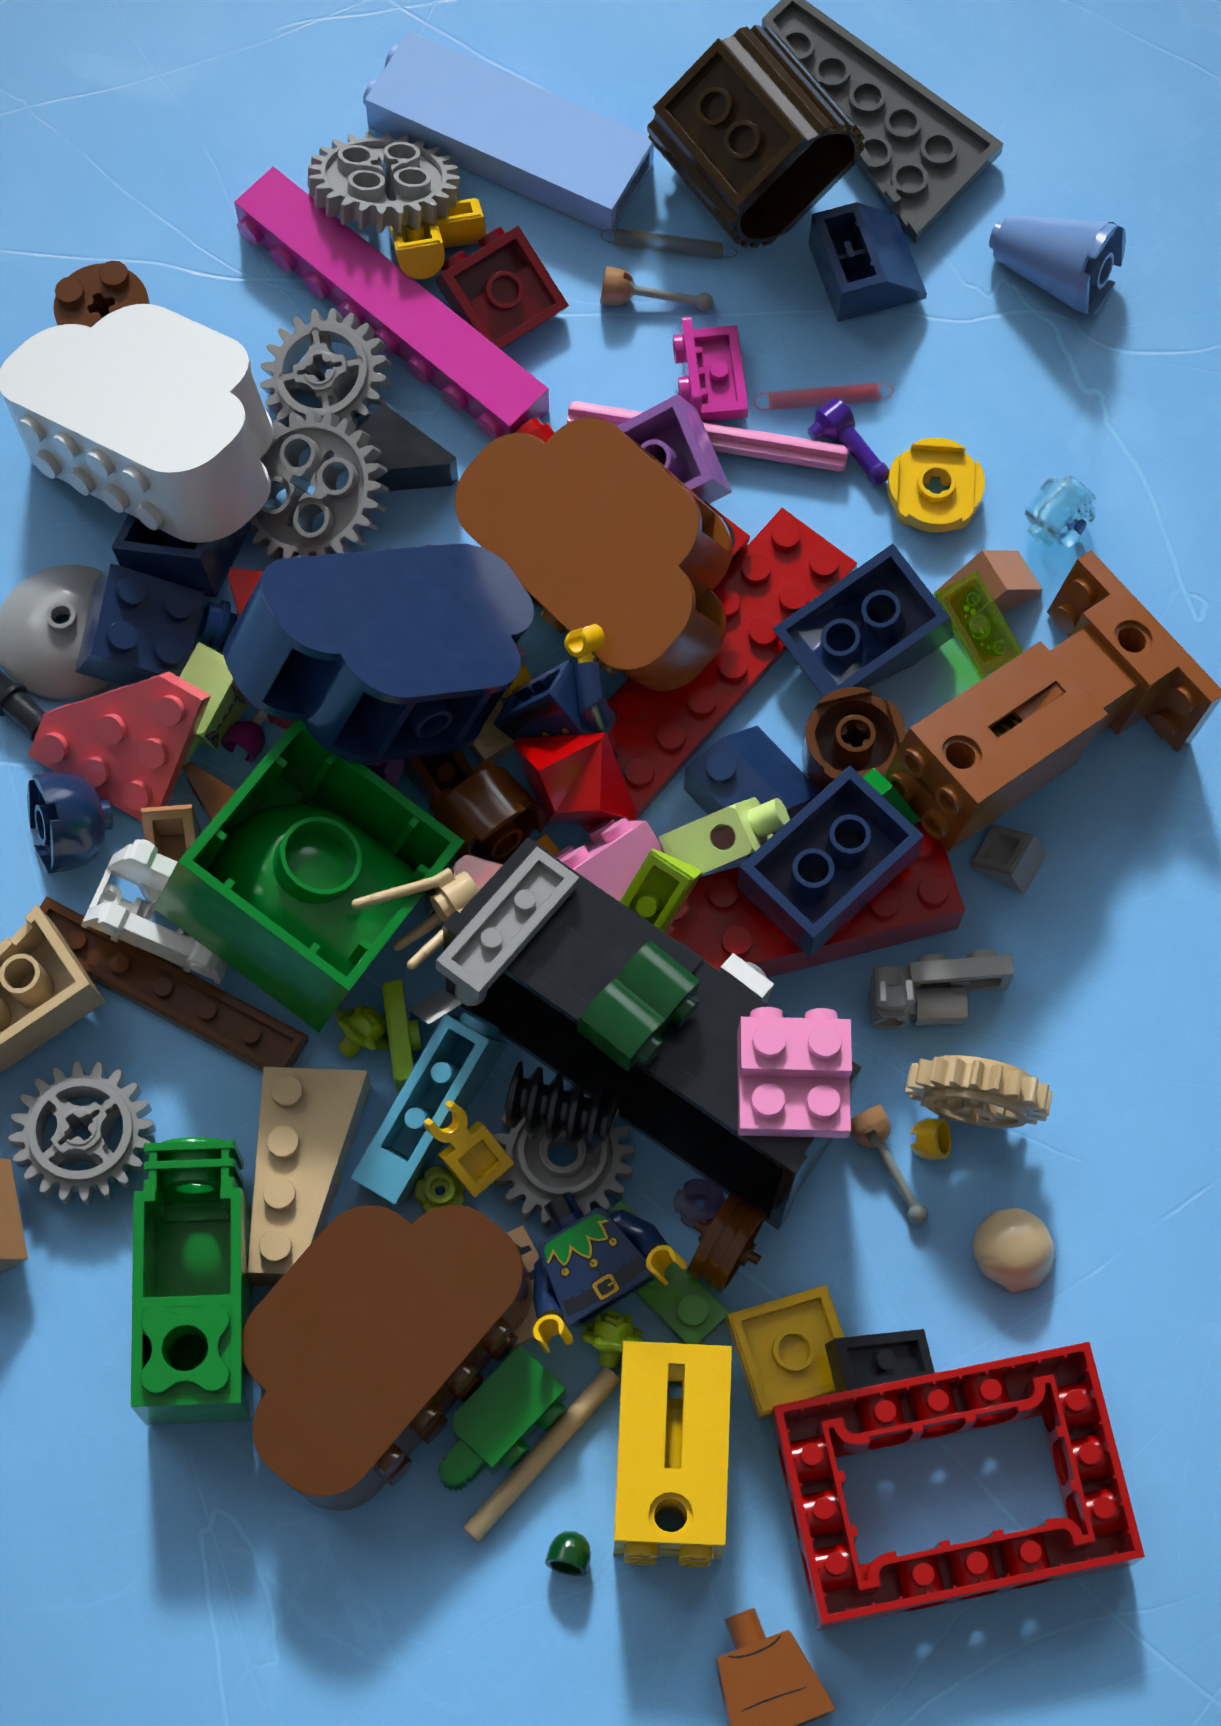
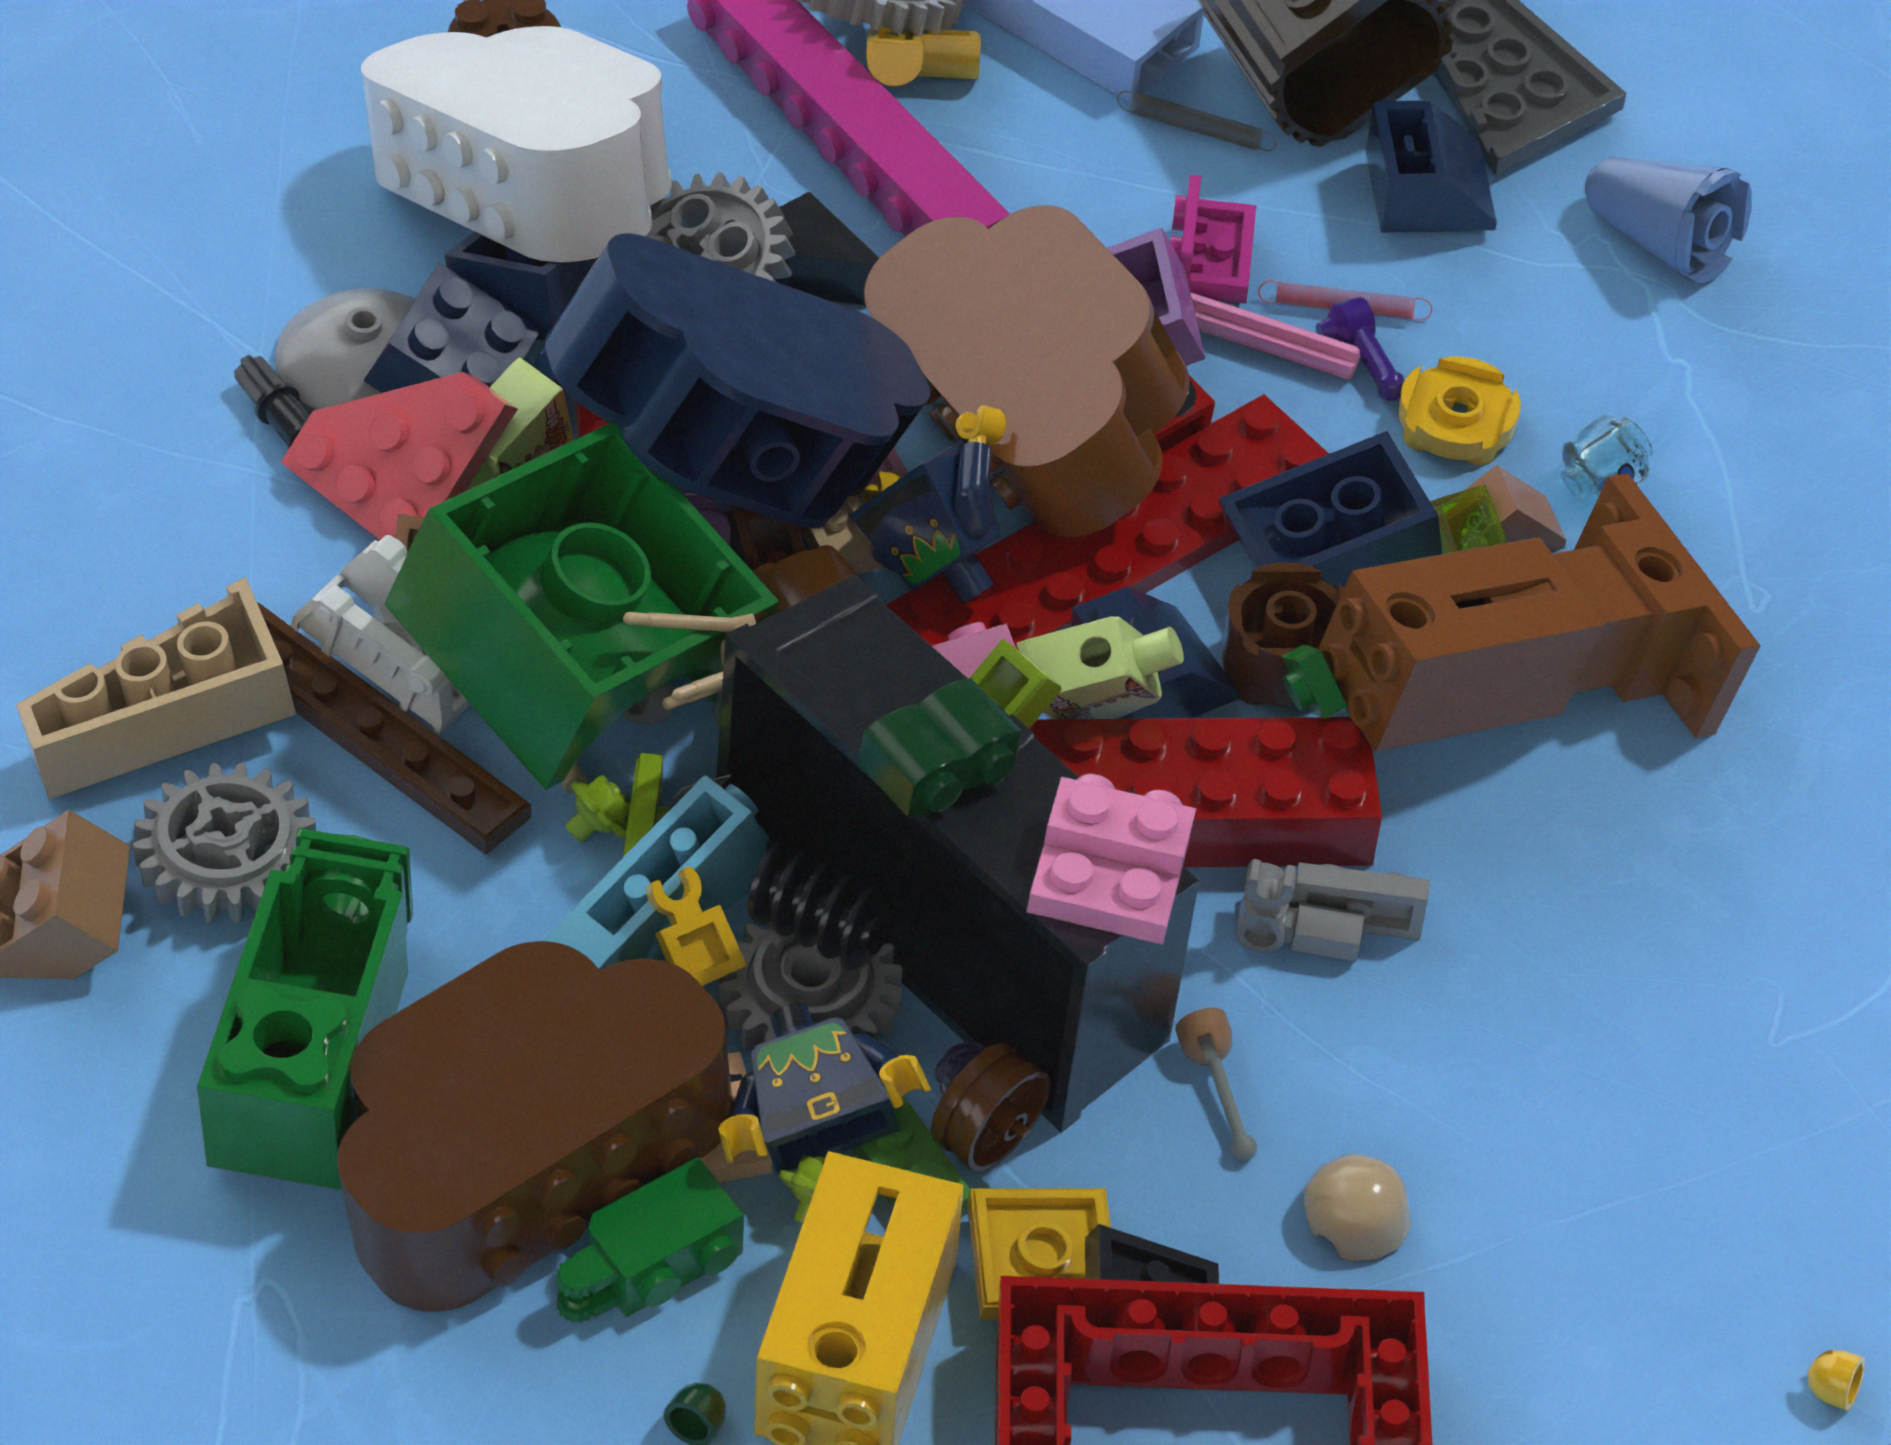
camera: 10 degrees right, 20 degrees down
(67, 820) = (308, 523): dark blue cylinder -> none
(301, 1152) = (496, 888): tan wedge -> none
(315, 342) = (744, 143): light grey gear -> none
(501, 287) = (985, 115): dark red plate -> none
(505, 925) = (796, 649): light grey piece -> none
(541, 1454) = (685, 1306): tan bar -> none
(575, 778) = (934, 578): red slope -> none
(620, 288) = (1125, 148): hinge -> none
(829, 861) = (1222, 709): dark blue brick -> none
(932, 1139) = (1281, 1067): yellow hinge -> none
(979, 1091) = (1350, 1002): tan gear -> none
(1009, 857) = (1457, 802): light grey slope -> none

